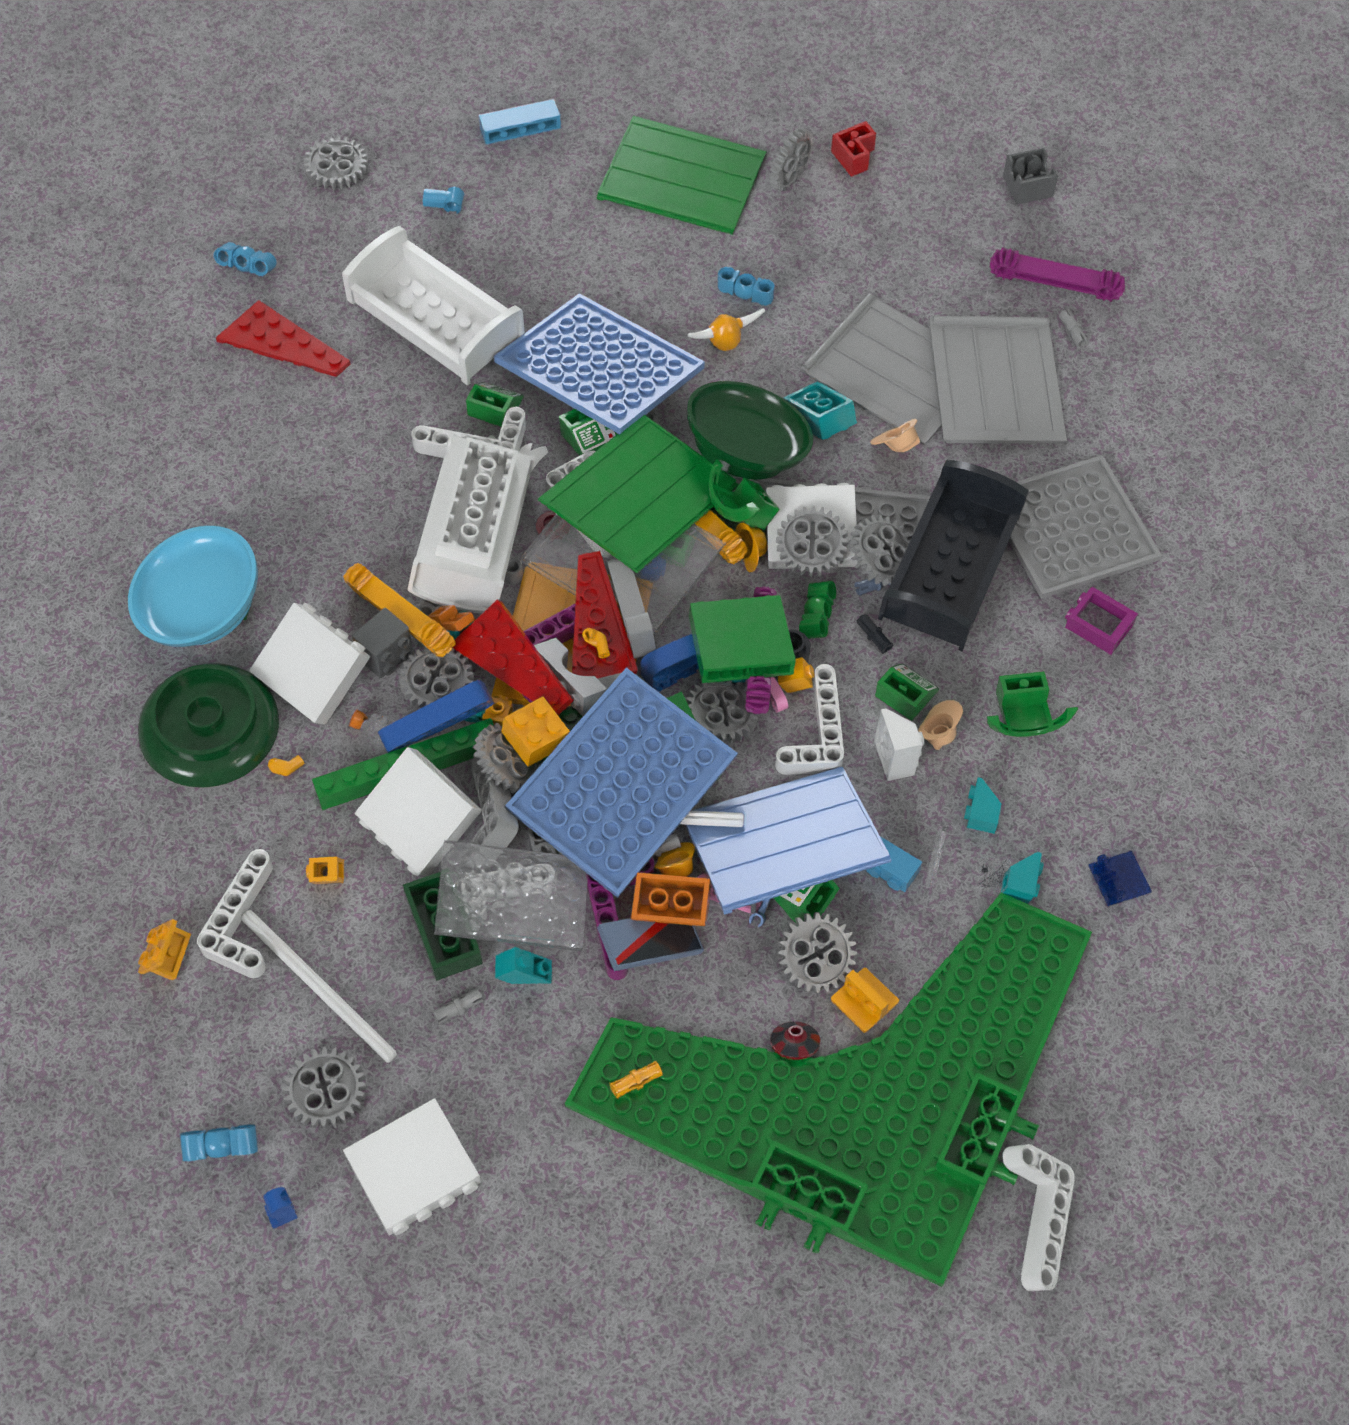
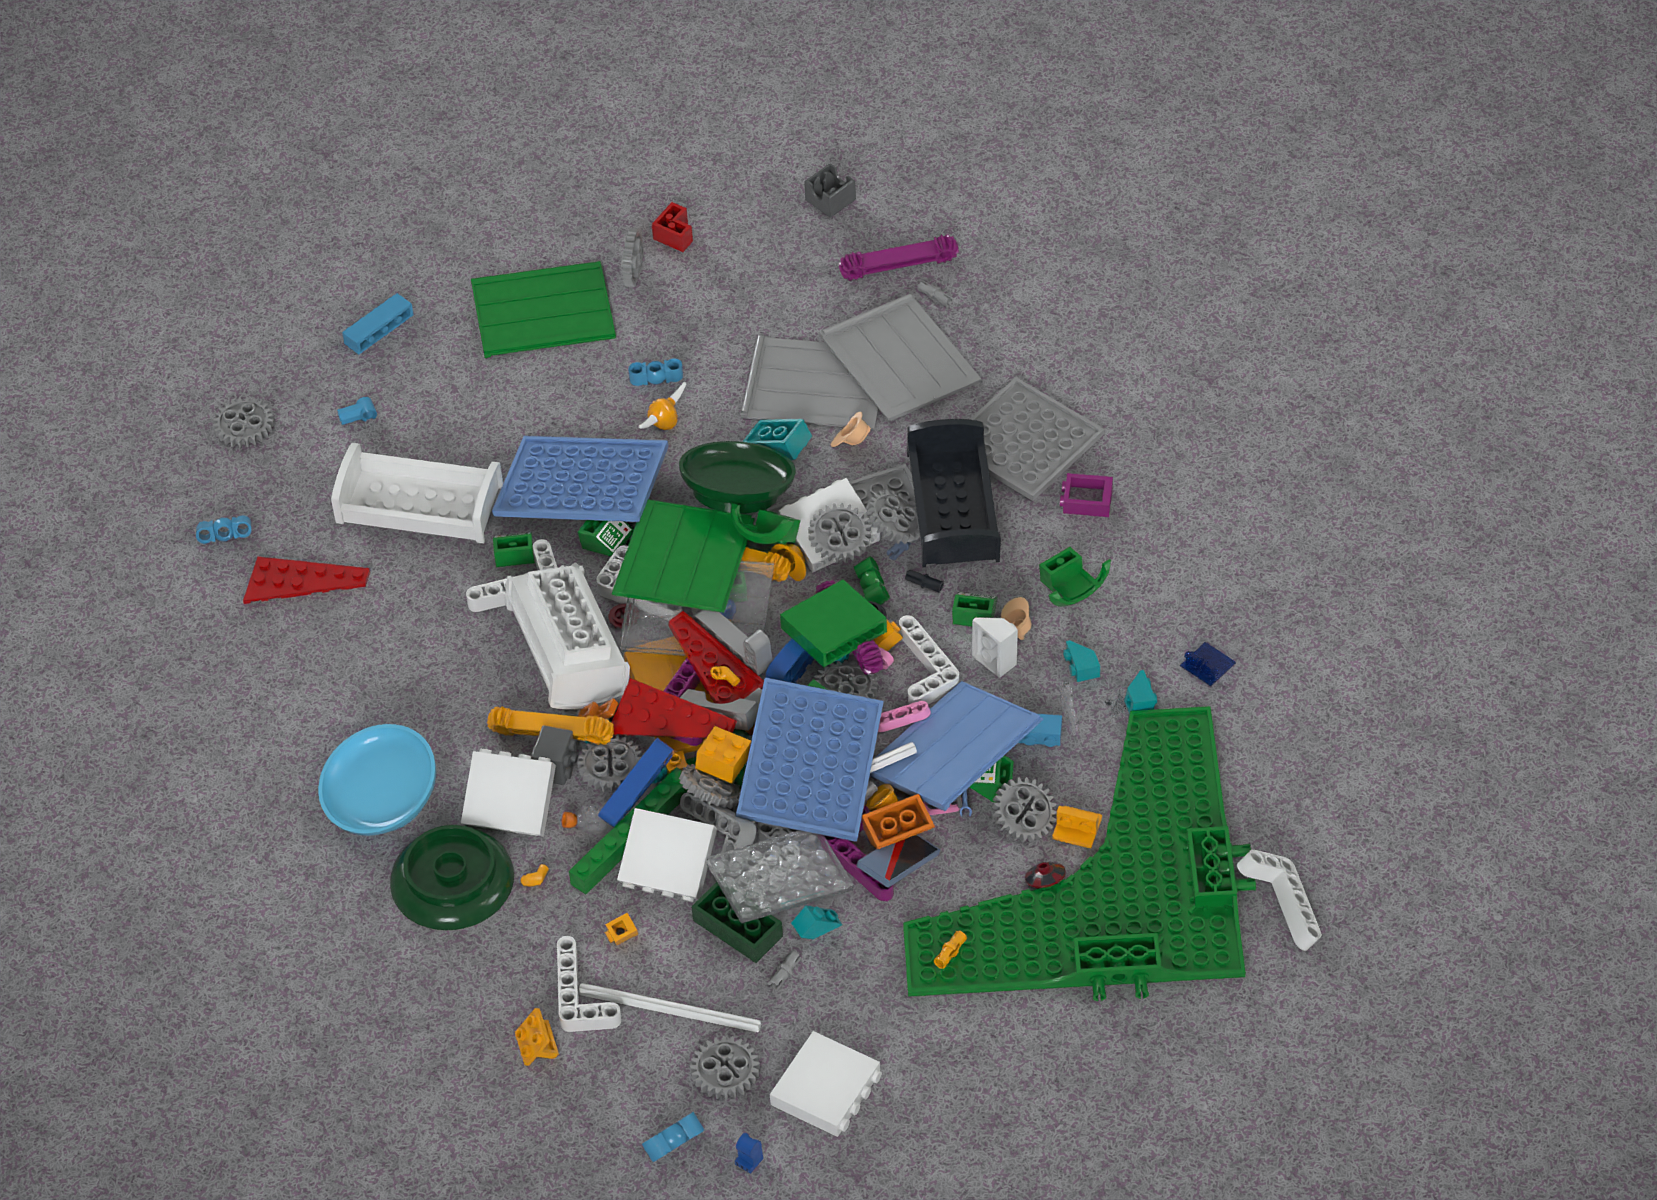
camera: 25 degrees left, 10 degrees down
(740, 773) = (913, 713): none -> bright pink beam

